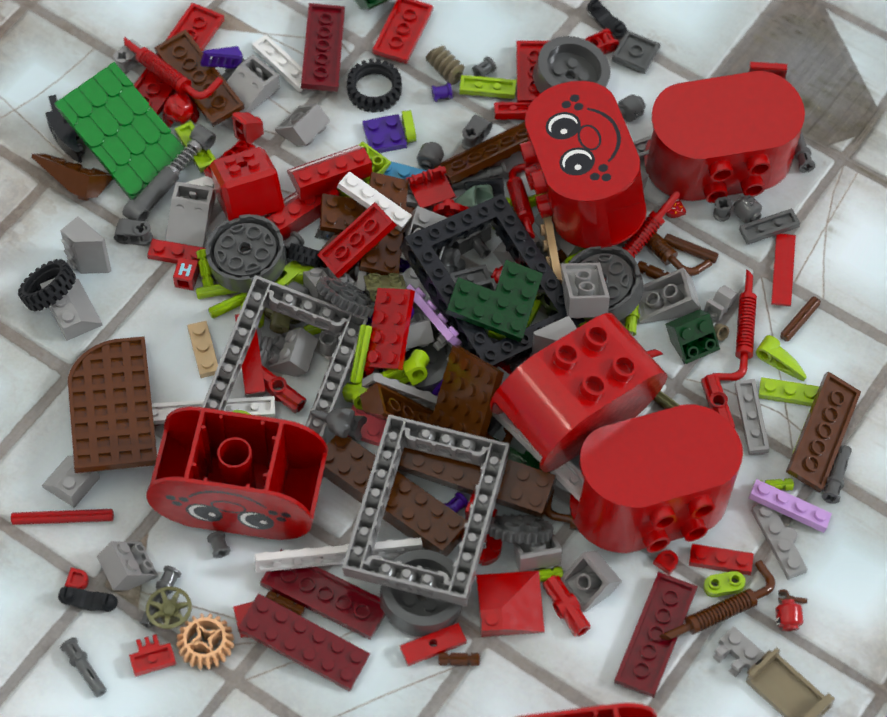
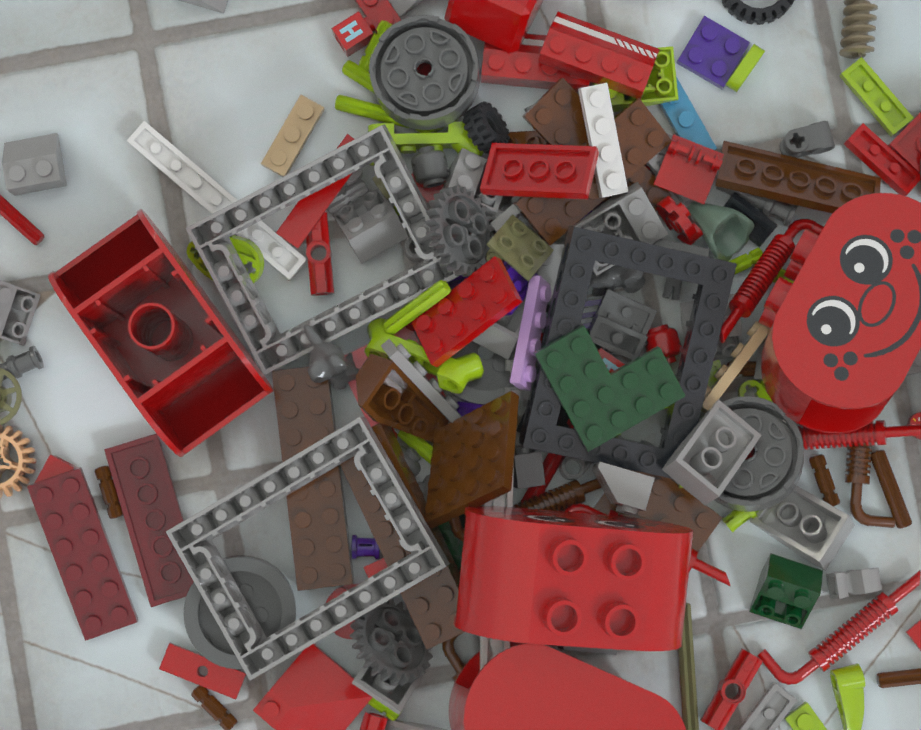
camera: 45 degrees right, 25 degrees up
(112, 407) = (134, 125): reddish brown plate -> none
(218, 544) = (102, 374): dark grey bush -> none
(294, 238) = (491, 95): dark grey bush -> none
(328, 555) = (190, 487): white plate -> none
(430, 155) = (732, 125): dark grey head -> none
(442, 92) = (821, 58): dark purple bush -> none
(484, 67) = (904, 66): dark grey bush -> none
(724, 331) = (821, 612): dark tan hinge -> none

